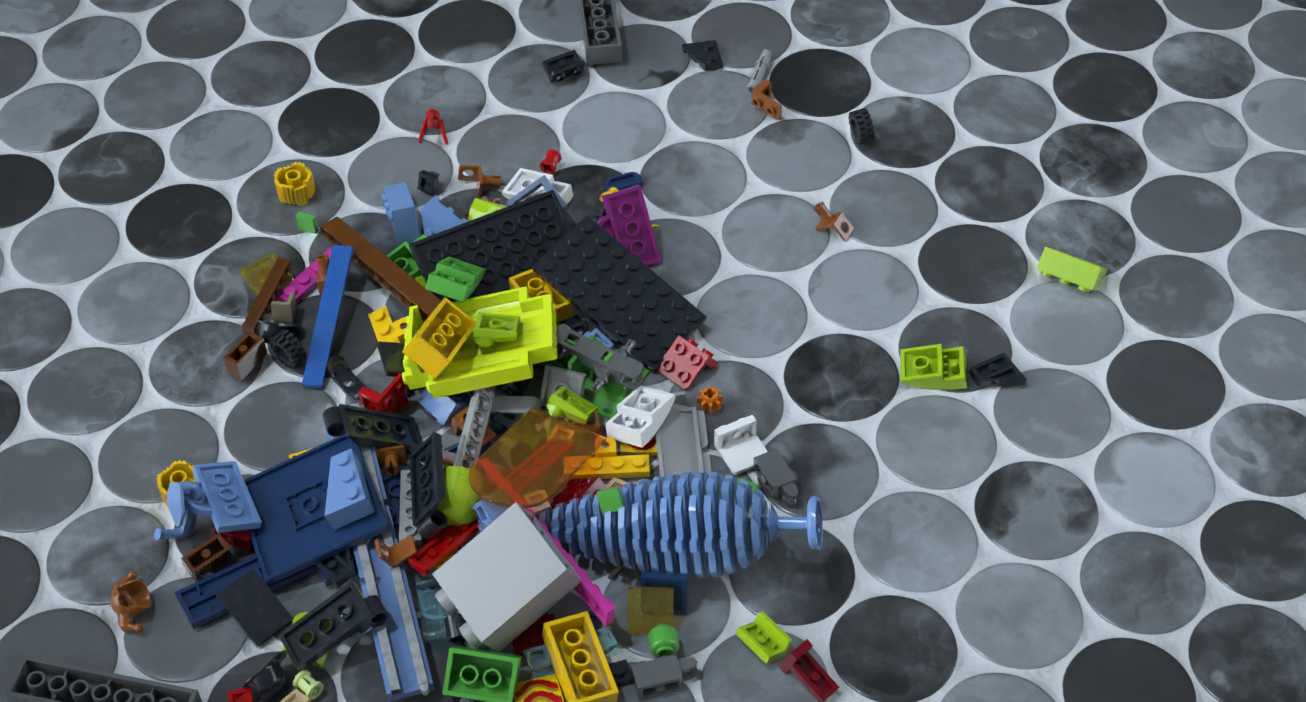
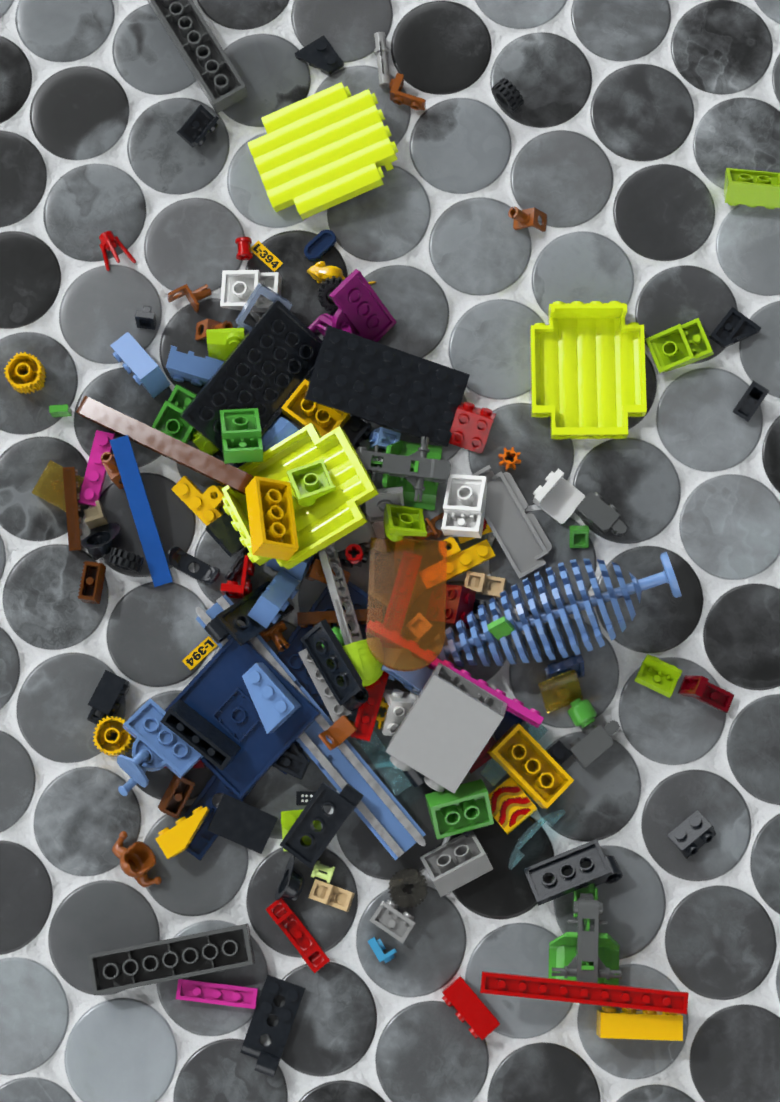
camera: 20 degrees left, 30 degrees up
(187, 589) = (178, 838): none -> yellow slope
(200, 449) = (107, 696): none -> black brick
(262, 503) = (200, 734): none -> black brick
(405, 420) = (274, 599): none -> medium blue wedge
(507, 411) = (349, 550): none -> red bush
(568, 175) = (266, 256): none -> yellow sticker
(666, 112) = (323, 150): none -> neon yellow panel
(828, 354) = (588, 370): none -> neon yellow panel
(989, 429) = (750, 401): none -> black slope

